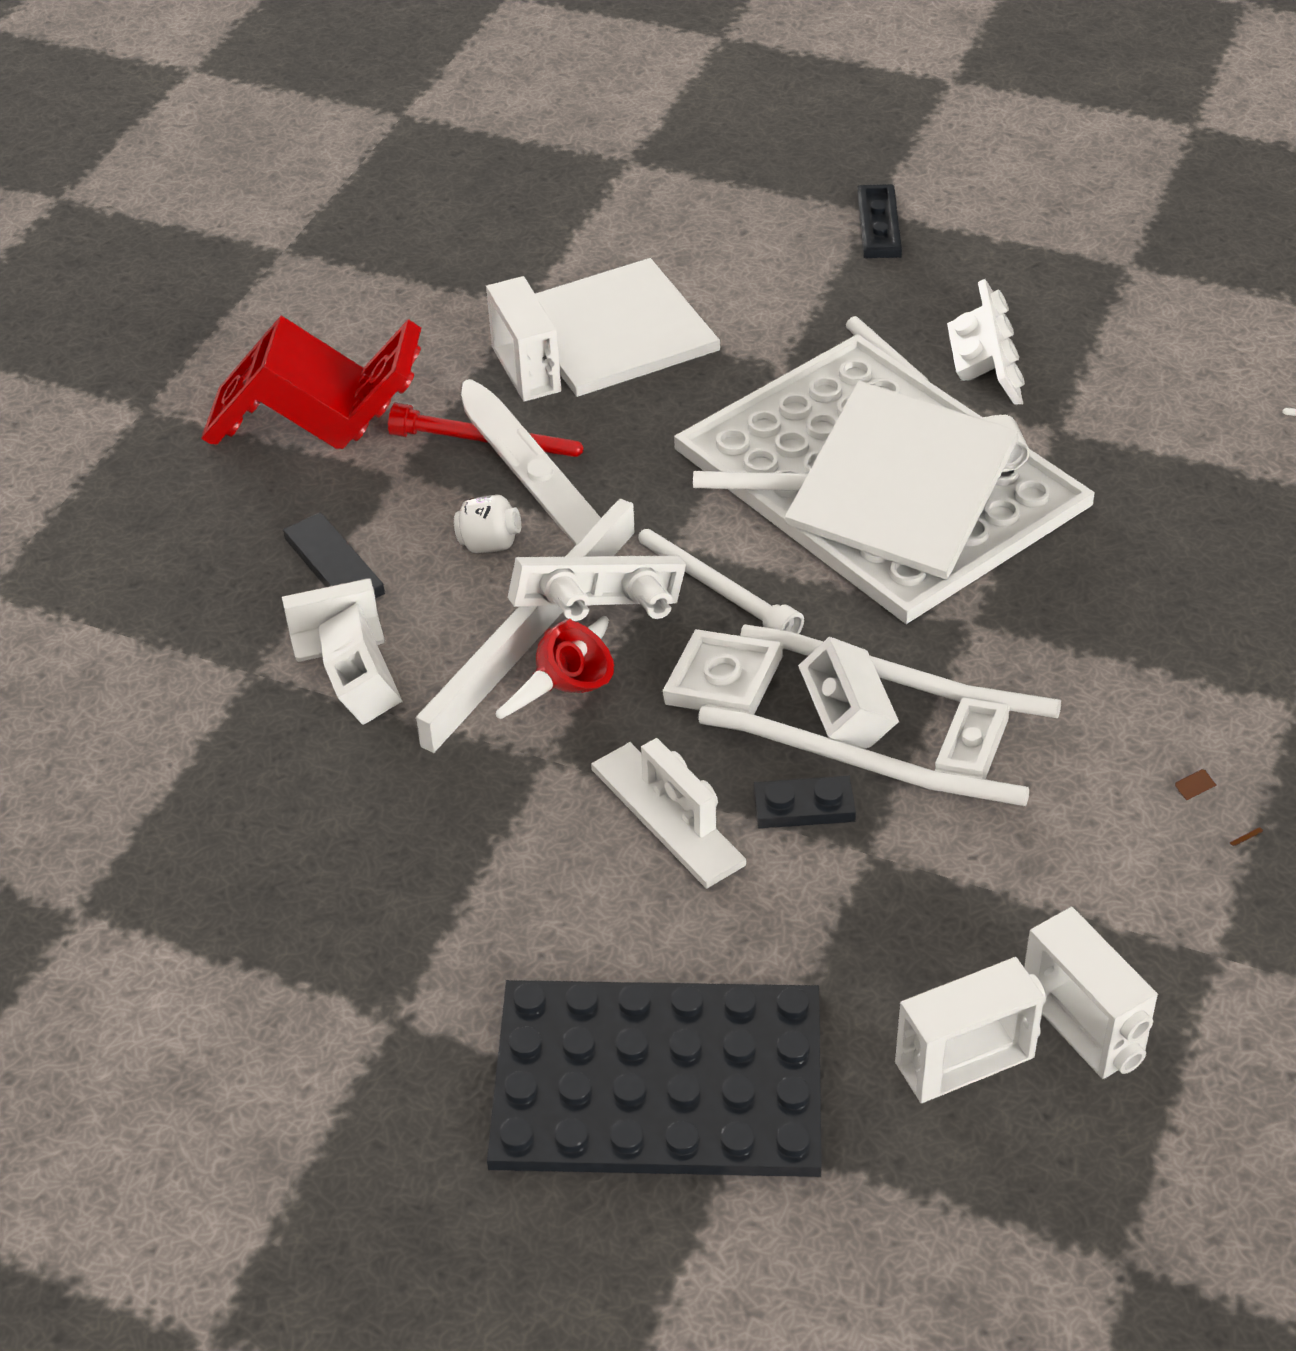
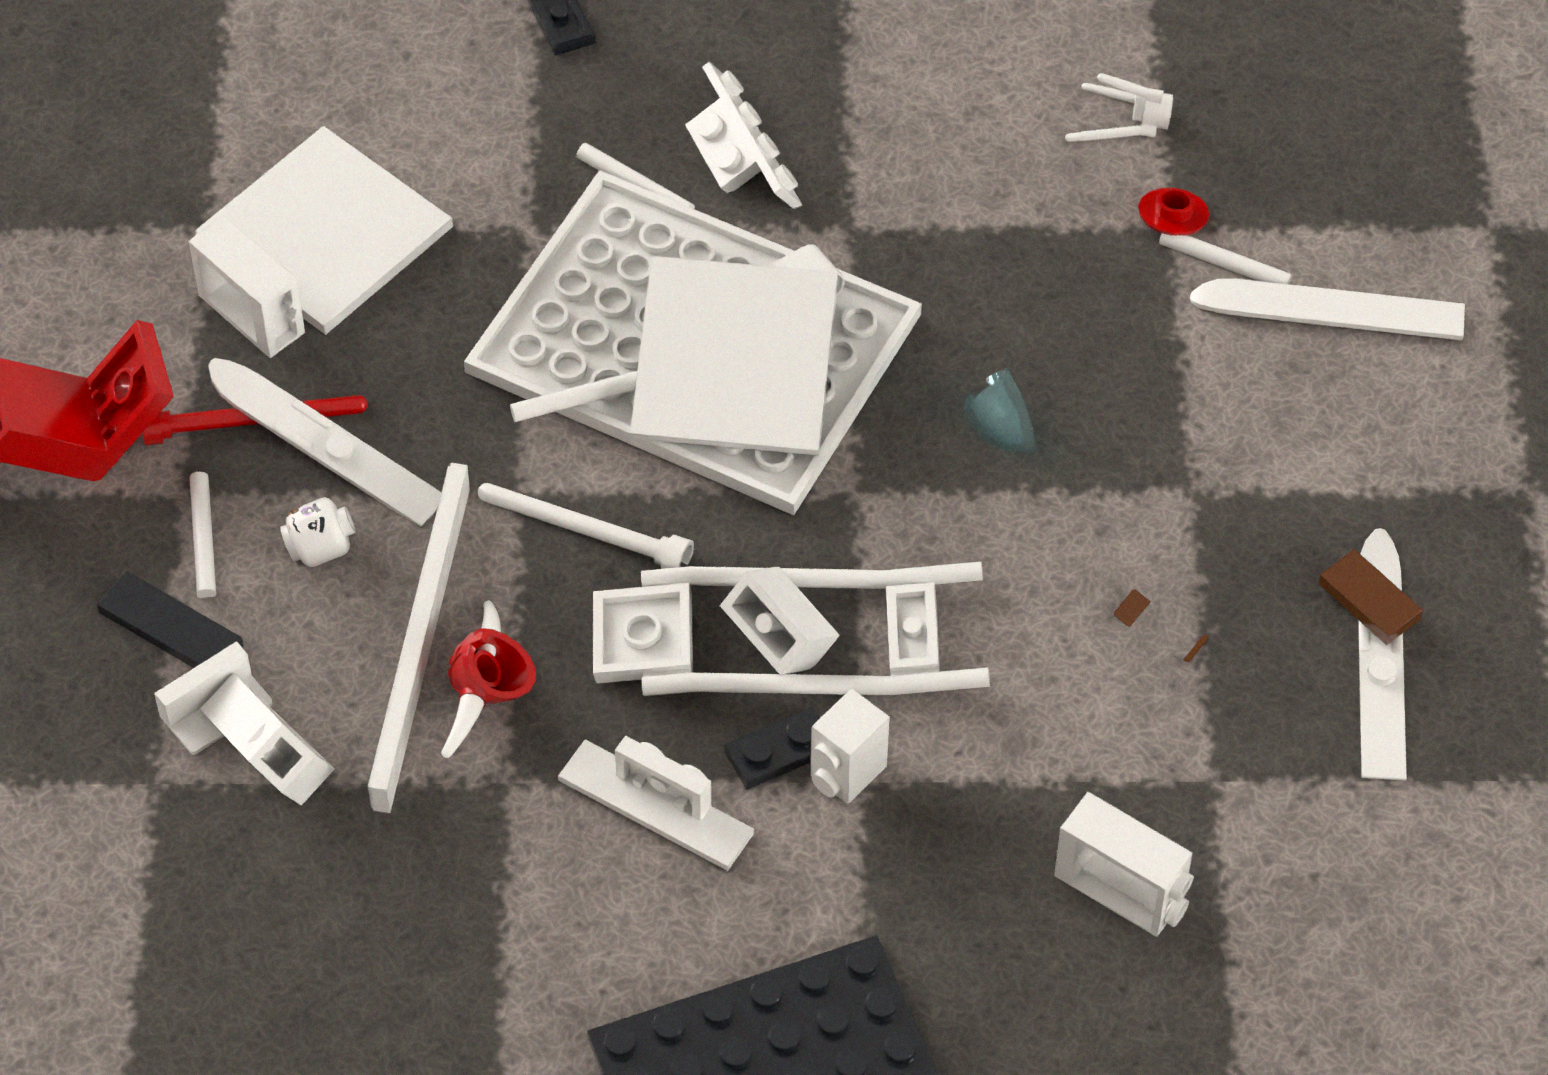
camera: 25 degrees left, 10 degrees up
(397, 506) = (202, 535): none -> white bar
(597, 580) = (464, 579): white plate -> none
(861, 810) = (849, 747): none -> white brick
(969, 1029) = (1034, 936): white window -> none
(1132, 594) = (1001, 414): none -> clear light blue brick

